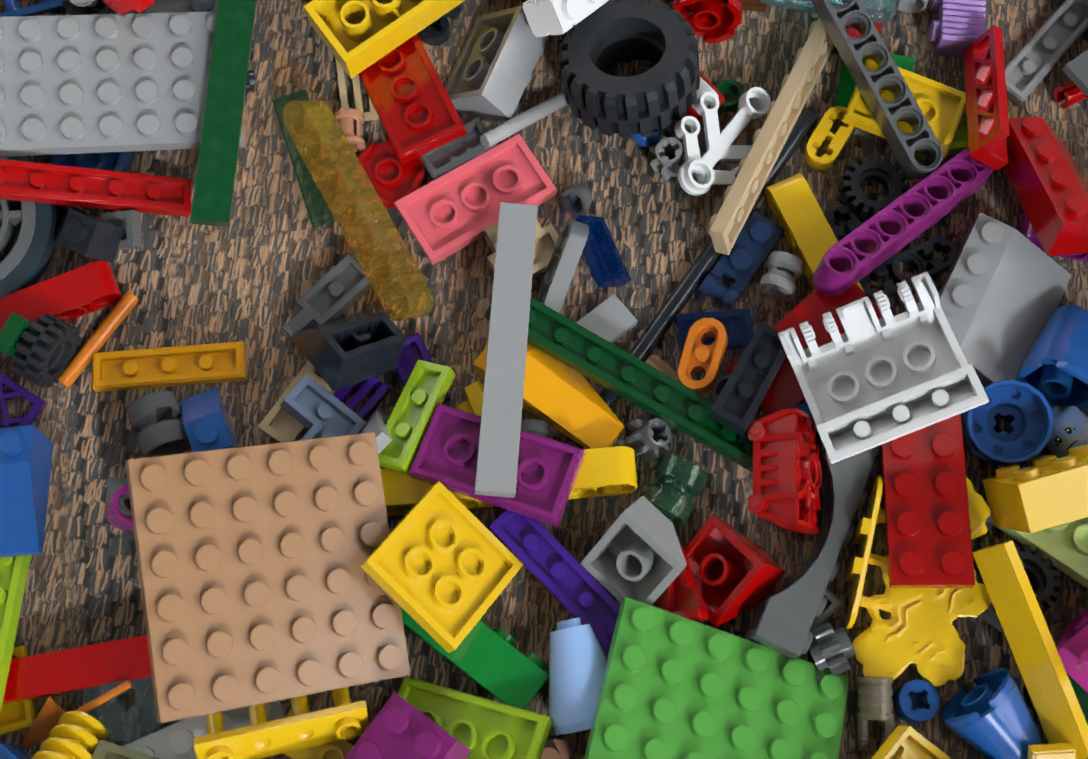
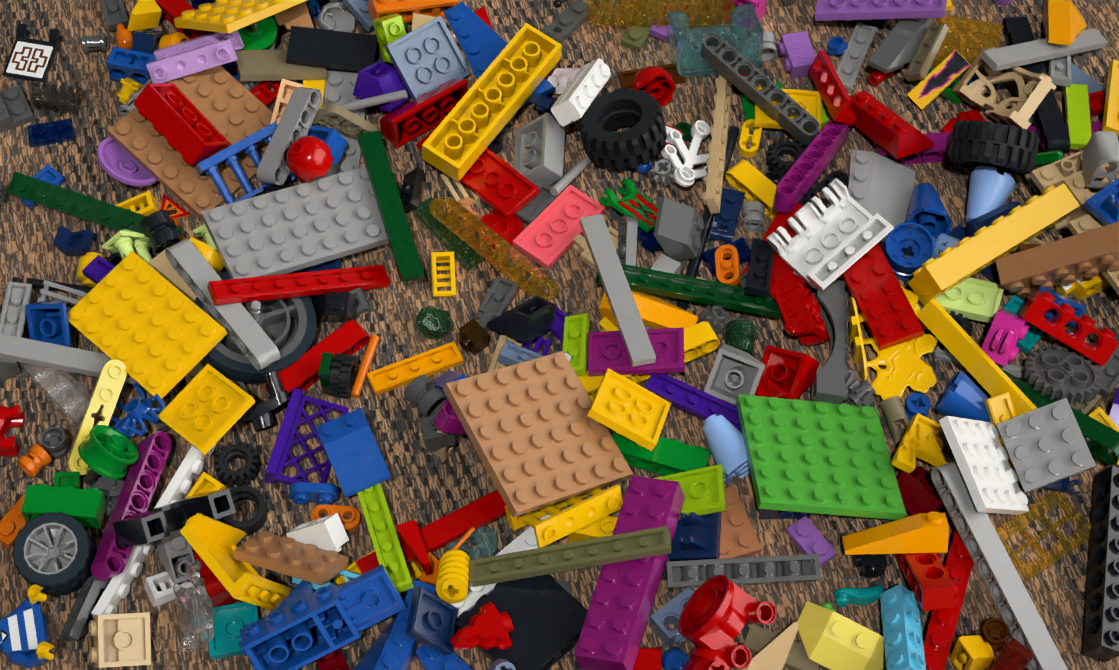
camera: 20 degrees left, 15 degrees down
(25, 684) = (411, 538): none -> red slope
(221, 301) = (433, 322): none -> clear green hair
(270, 346) = (473, 337): none -> dark brown plate
(278, 70) = (411, 189): none -> black plate
(289, 217) = (443, 257): none -> yellow slope
(604, 204) = (633, 205): none -> green flag
(650, 265) = (678, 229): none -> dark grey slope
(1026, 20) = (836, 46): none -> blue plate

